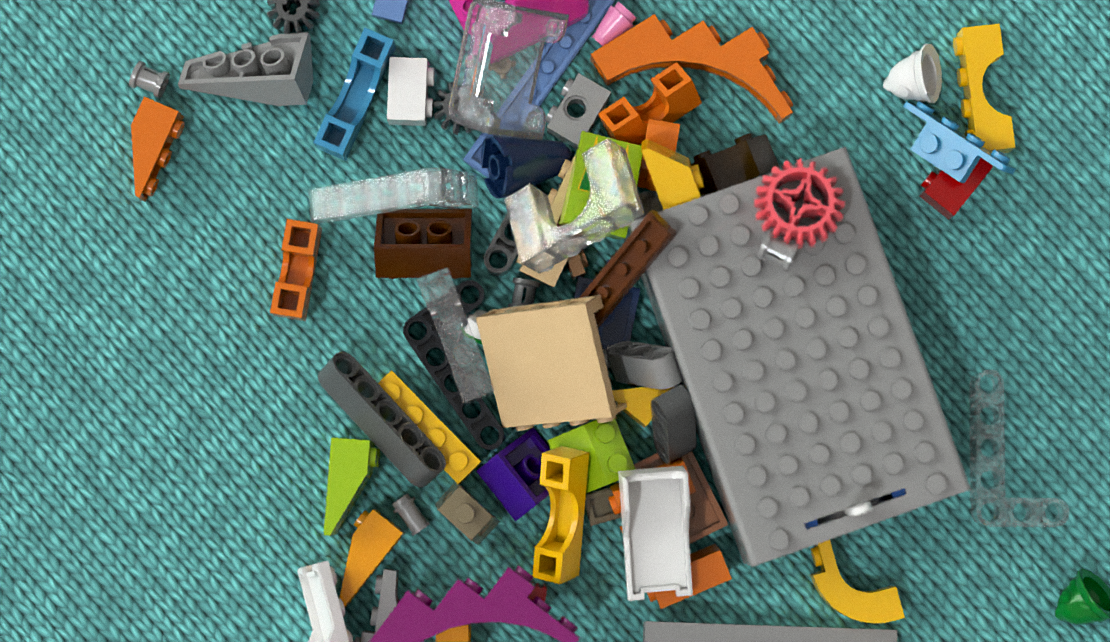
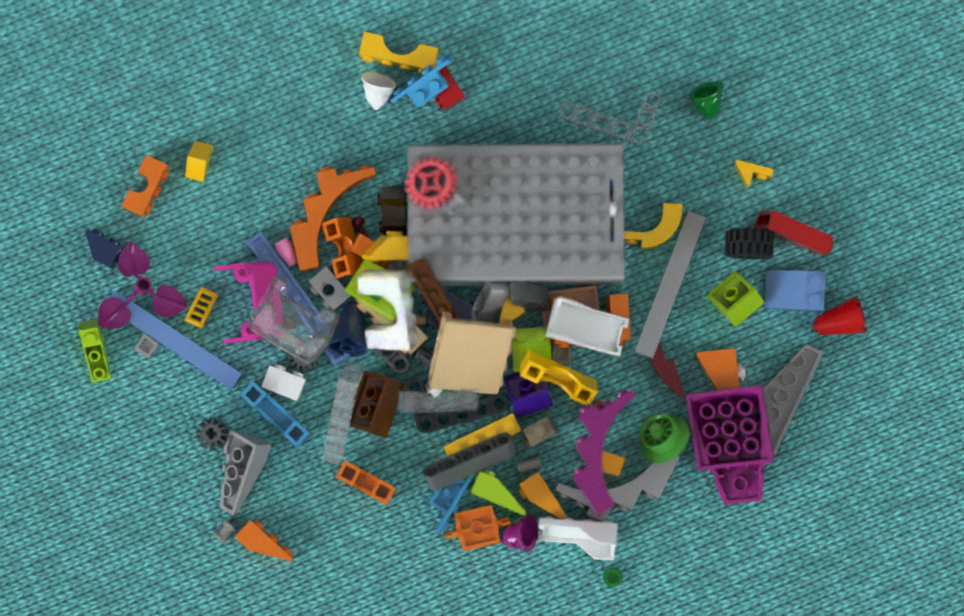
camera: 65 degrees left, 0 degrees up
(284, 467) = (477, 527): none -> orange plate
(297, 540) = (521, 534): none -> magenta piece
(310, 406) = (447, 499): none -> dark azure bracket
(694, 118) = (357, 225): none -> dark red hand

